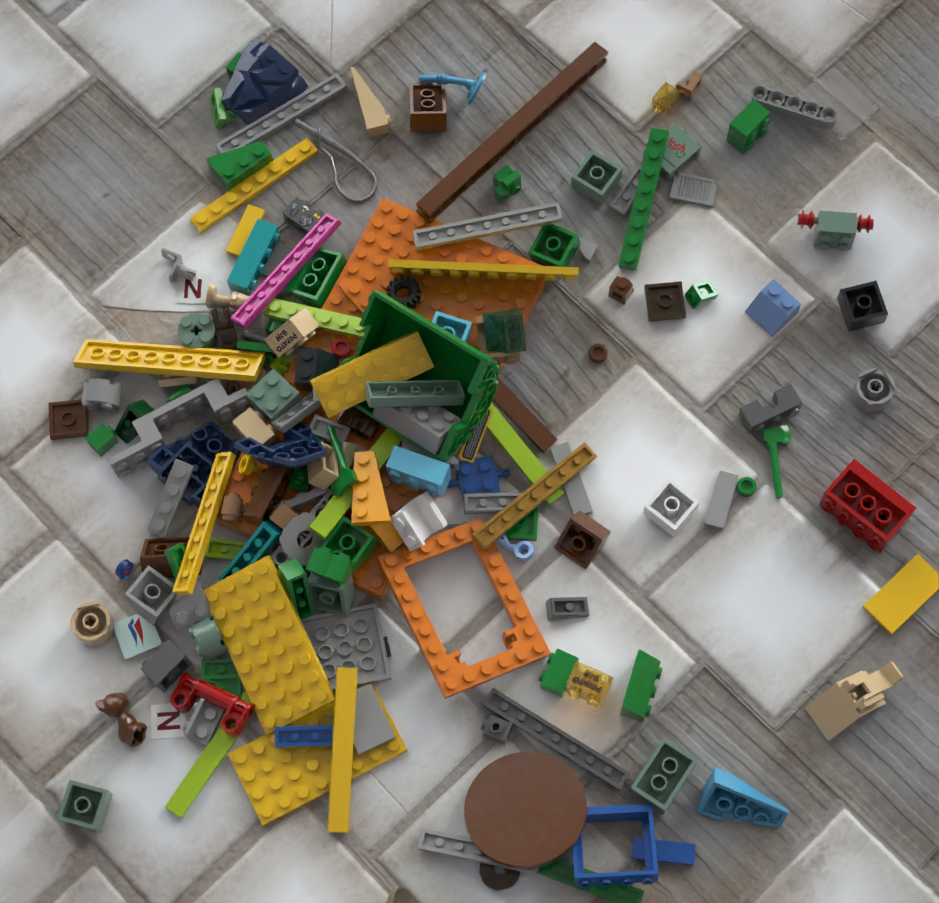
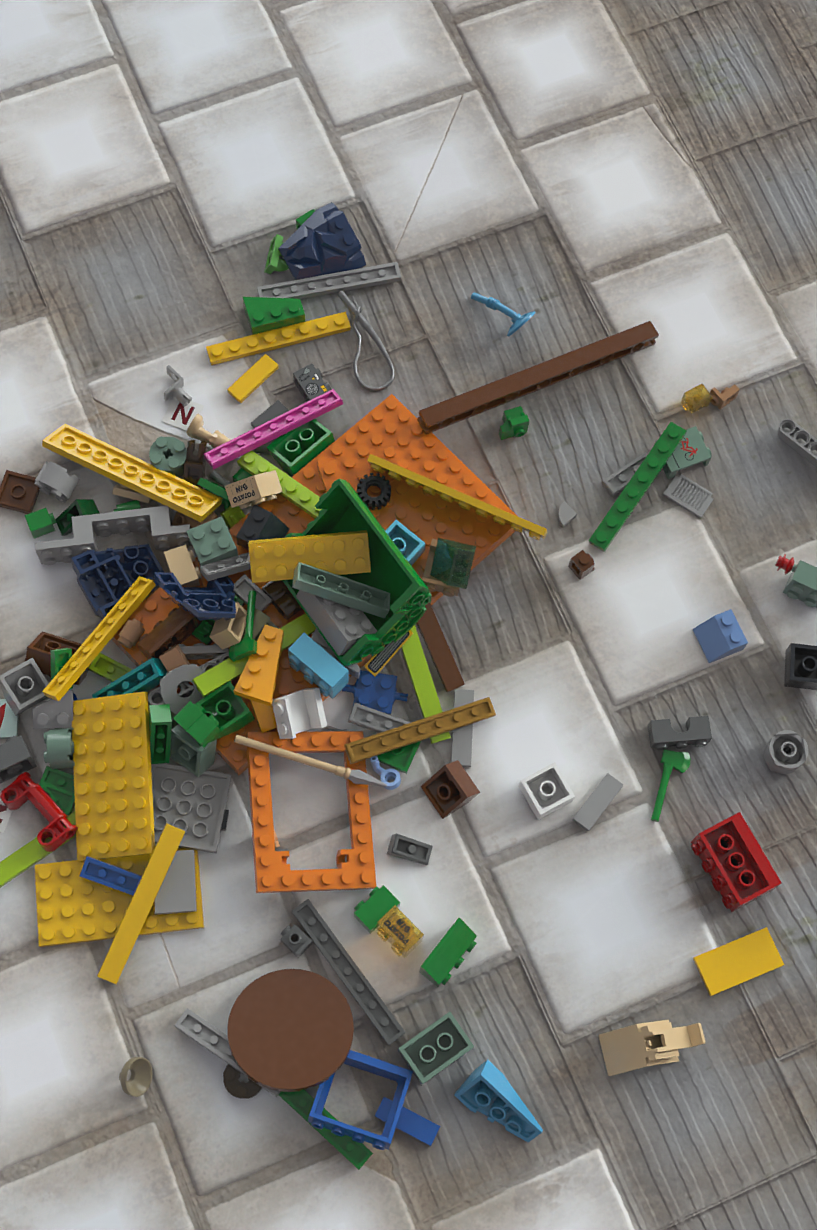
camera: 10 degrees right, 0 degrees up
(124, 569) = (11, 652): clear blue tile -> none
(170, 498) = (80, 602): light grey plate -> none
(203, 722) = (24, 825): light grey bracket -> none
(247, 465) = (161, 598): yellow tile -> none
(253, 257) = (250, 405): teal brick -> none
(341, 348) = (295, 521): red tile -> none
(372, 111) = (415, 310): tan slope -> none
(427, 107) = (468, 325): reddish brown slope -> none
(487, 226) = (478, 457): light grey plate -> none
(492, 559) = (355, 776): none -> tan piece
(554, 246) = (534, 500): green brick -> none
(596, 177) = (601, 449): sand green brick -> none
(597, 353) = (536, 616): reddish brown tile -> none
(665, 301) = (619, 591): dark brown plate -> none
(700, 293) = (656, 596): green bracket -> none
(746, 487) = (626, 798): green tile -> none
(748, 126) = (764, 455): green brick -> none

